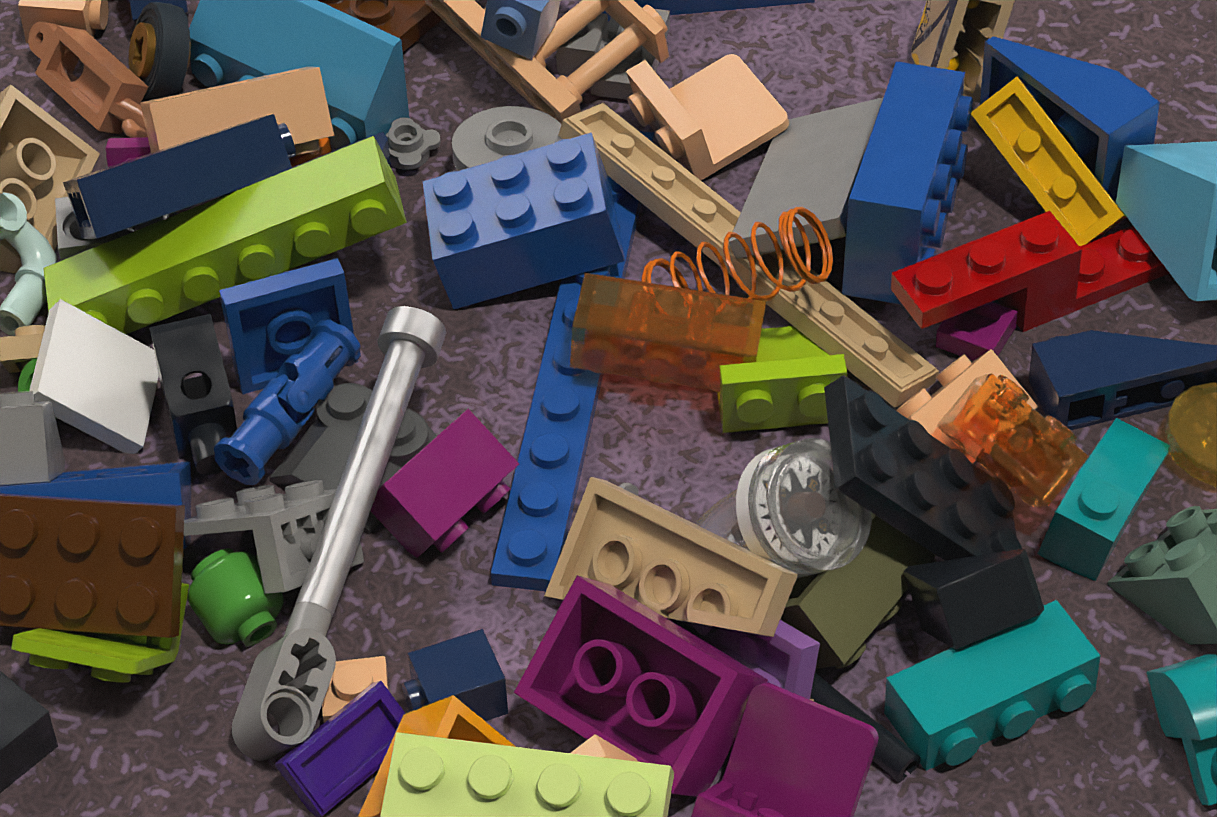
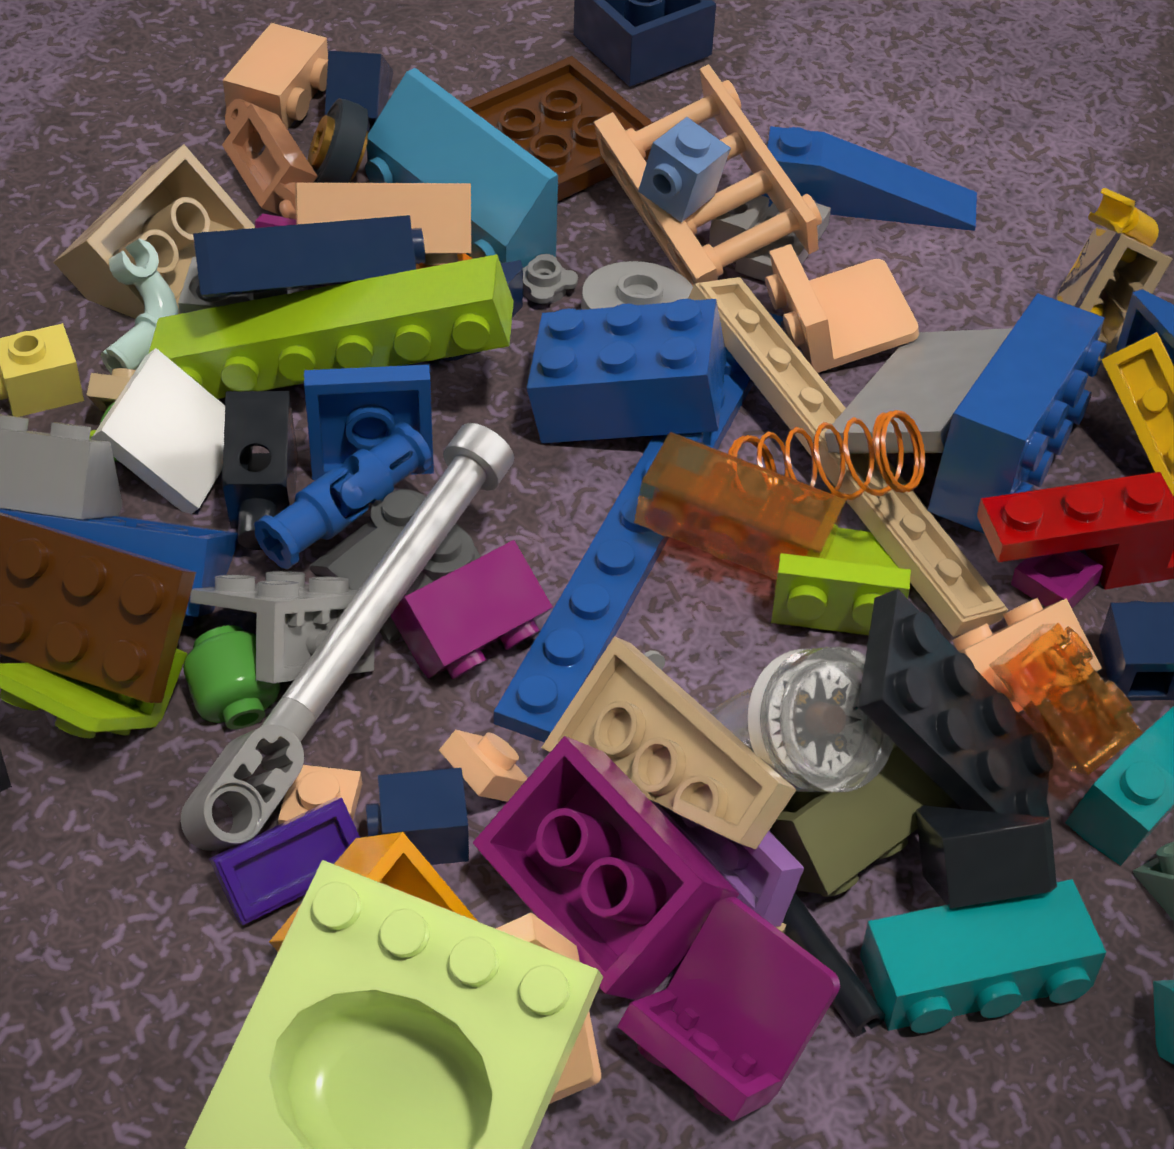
camera: 10 degrees right, 0 degrees up
(502, 622) = (485, 763): none -> light nougat plate

